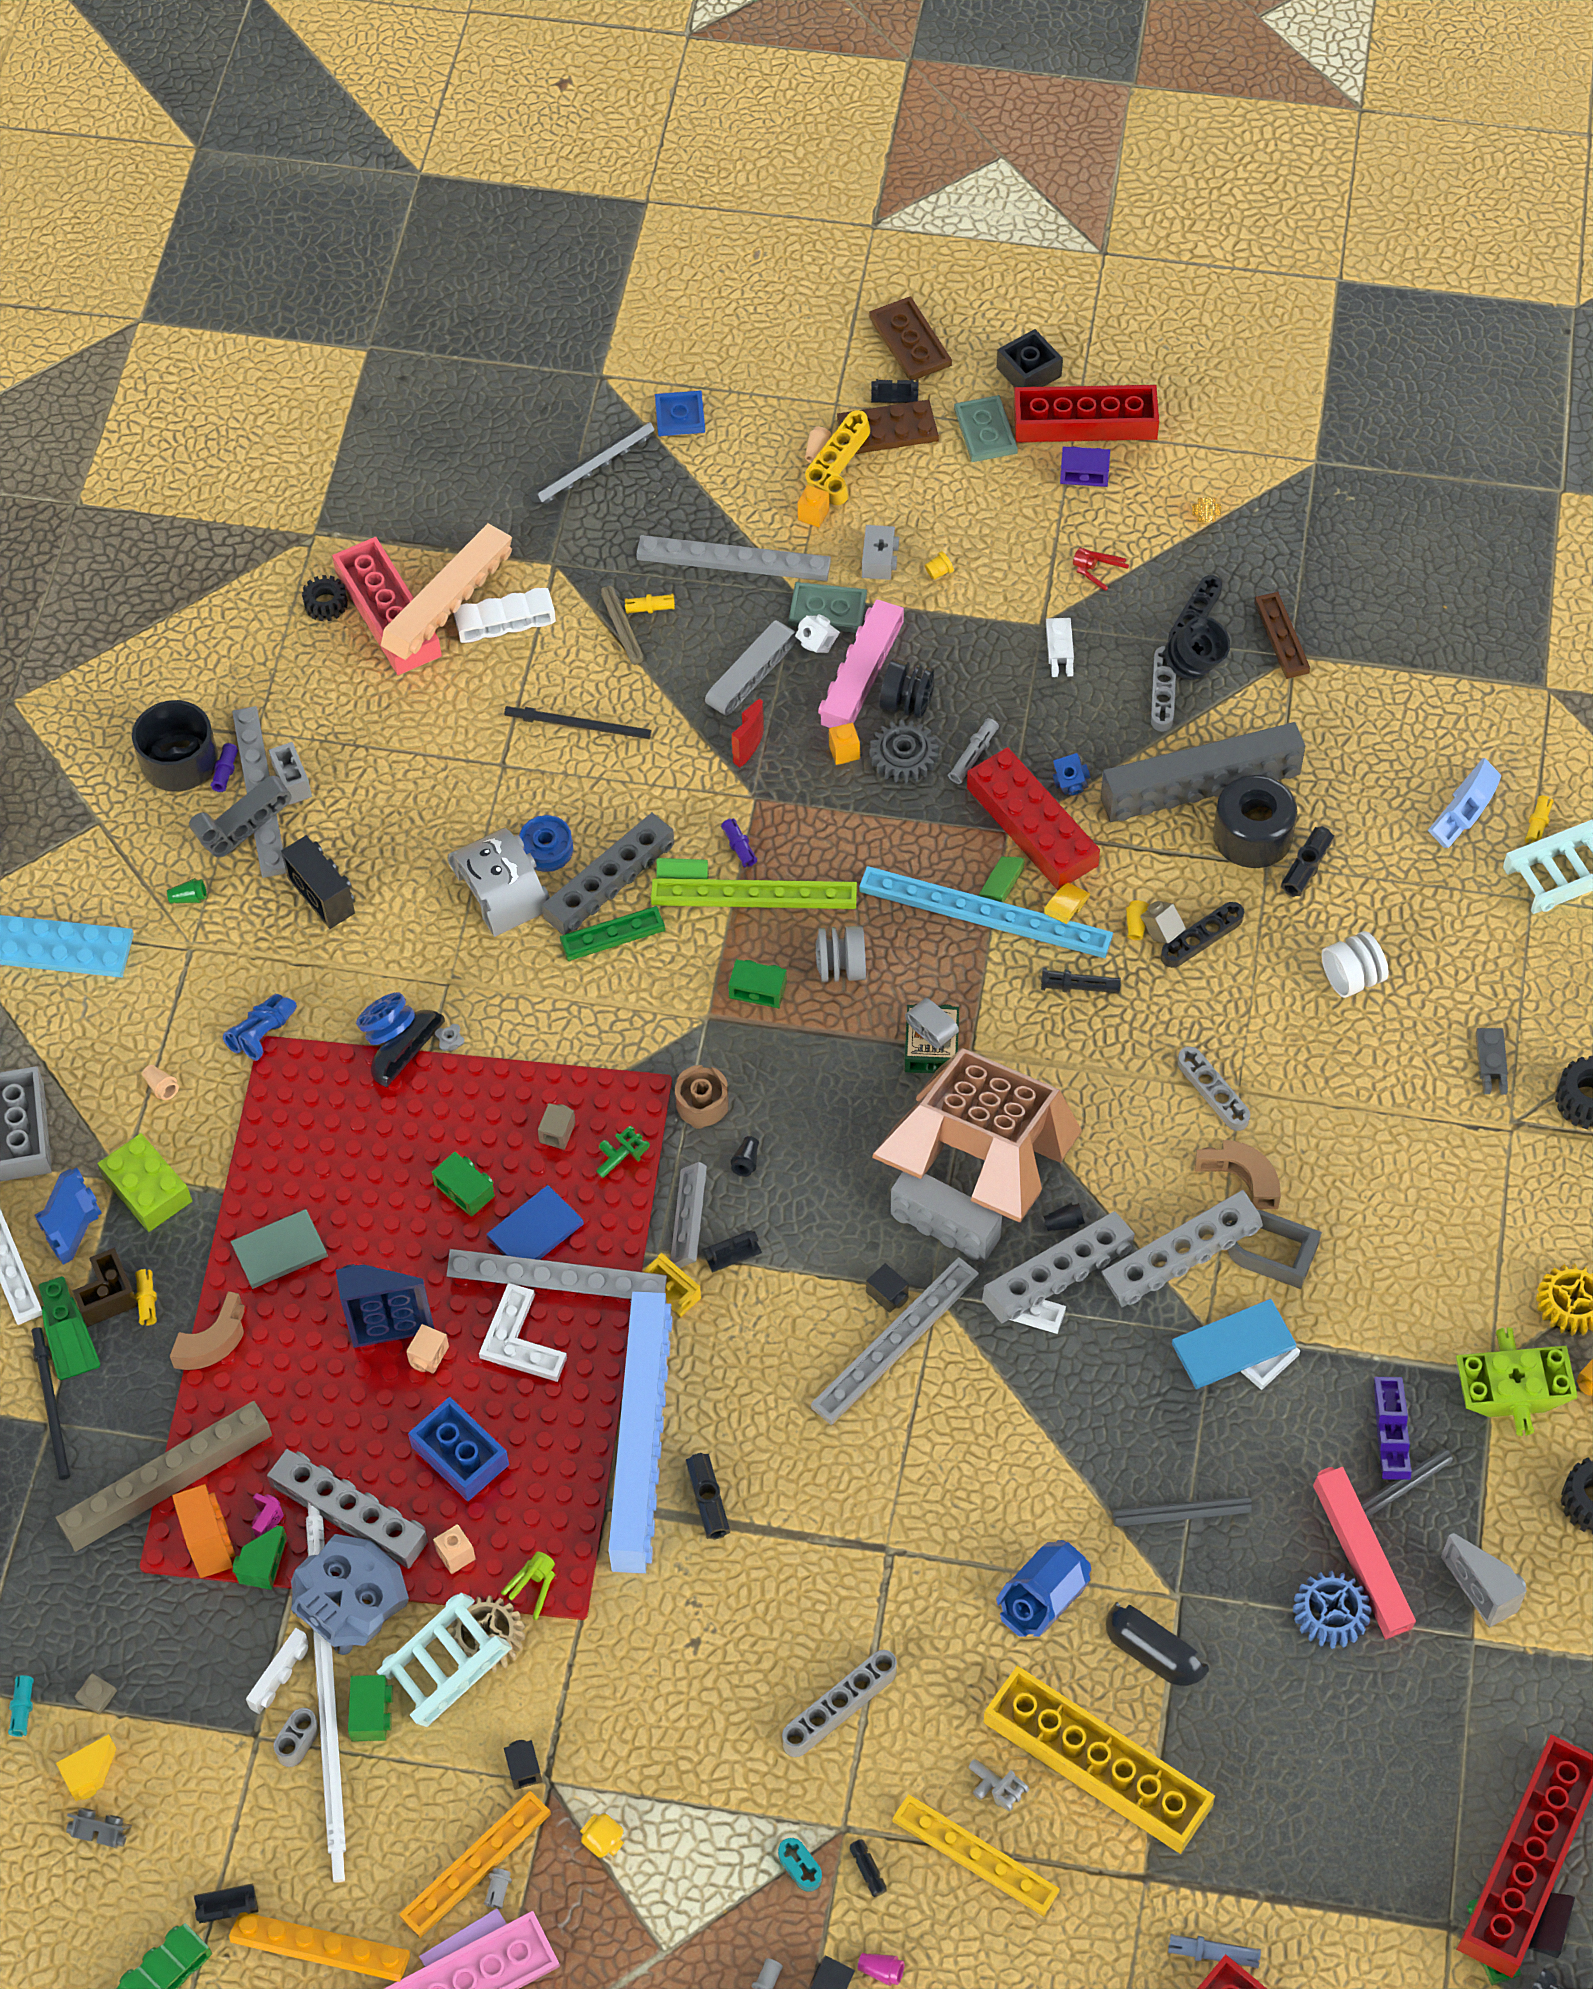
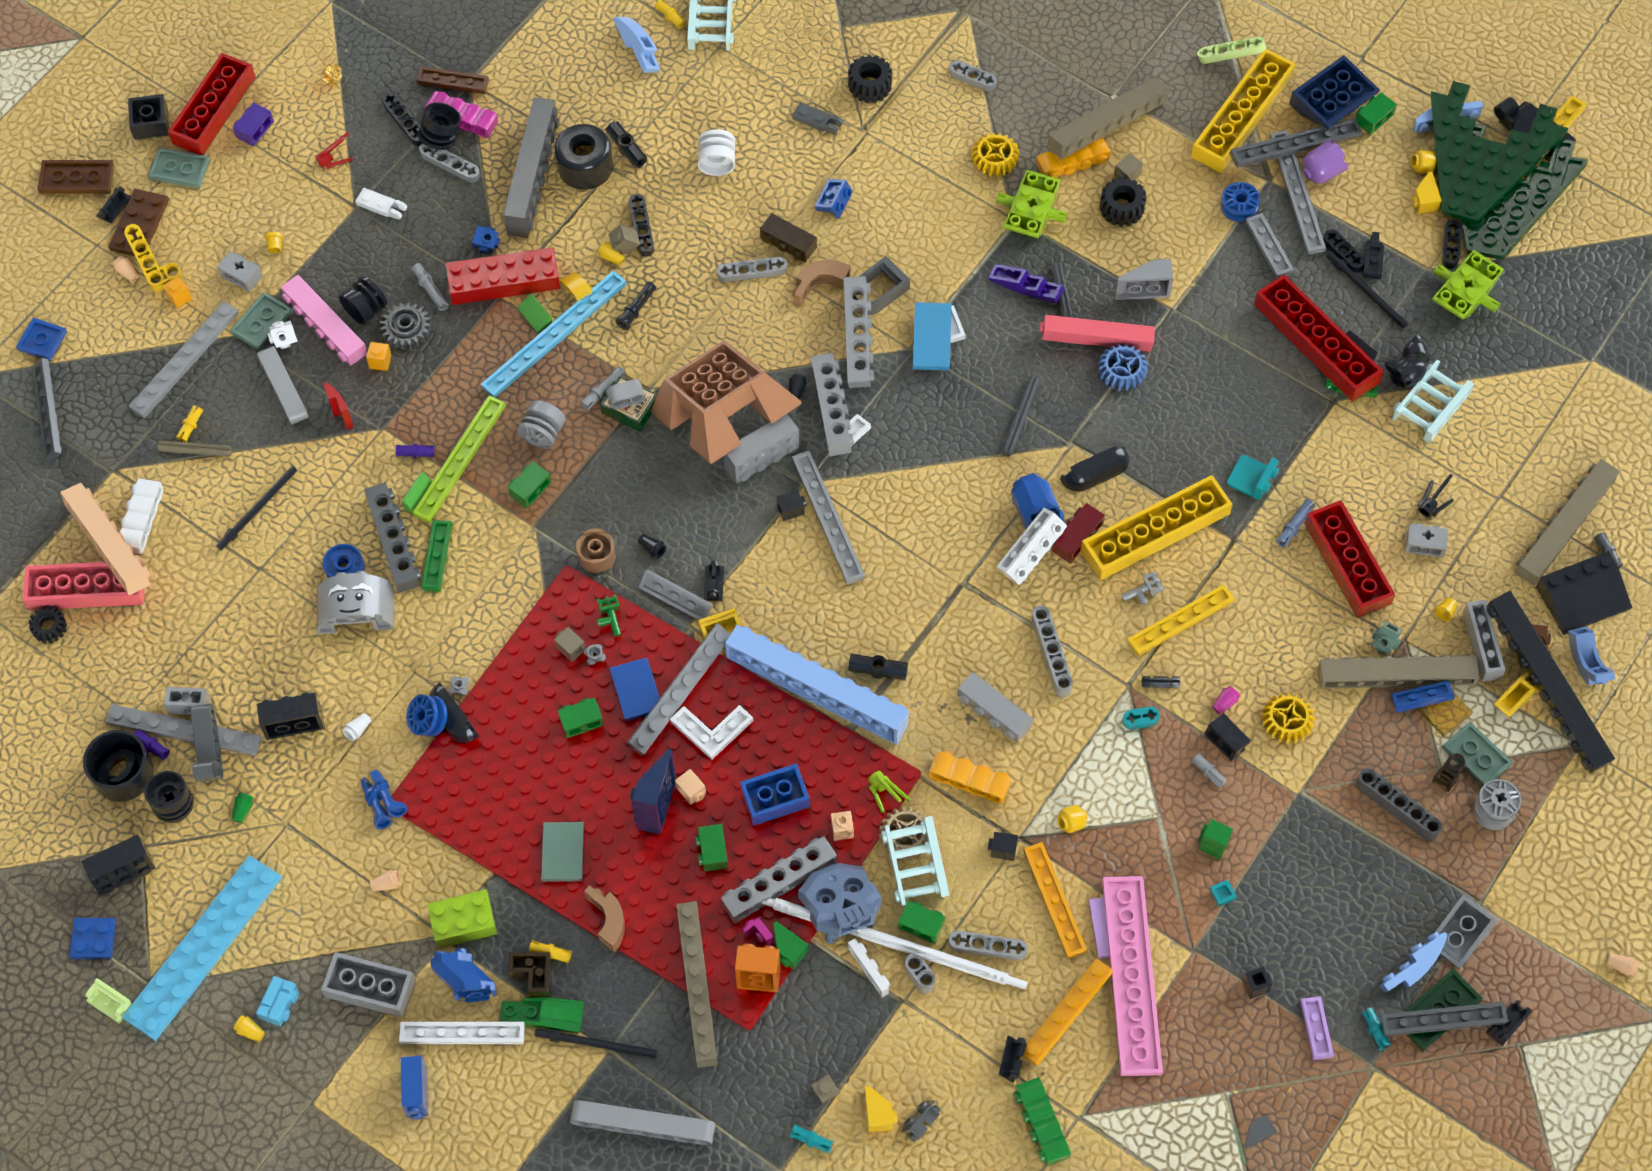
camera: 65 degrees left, 5 degrees up
(56, 806) = (118, 865): none -> black brick
(161, 813) = (169, 796): none -> black wheel
(342, 957) = (356, 727): none -> white cone
(356, 1411) = (712, 847): none -> green brick
(374, 1807) = (988, 941): none -> light grey beam
(497, 1888) = (1076, 893): light grey pin -> none
(556, 1154) = (594, 649): none -> light grey plate
(602, 1679) = (970, 777): none -> light orange brick
(719, 1666) = (994, 707): none -> light grey brick
(916, 994) = (598, 392): none -> light grey pin
(975, 1605) = (1031, 546): none -> white brick
(1048, 1661) = (1084, 524): none -> dark red brick
(1238, 670) = (472, 116): none -> dark pink brick
(1256, 1859) = (1253, 476): none -> teal bracket
(1283, 1107) = (788, 237): none -> dark brown brick
(1381, 1135) = (834, 197): none -> blue bracket

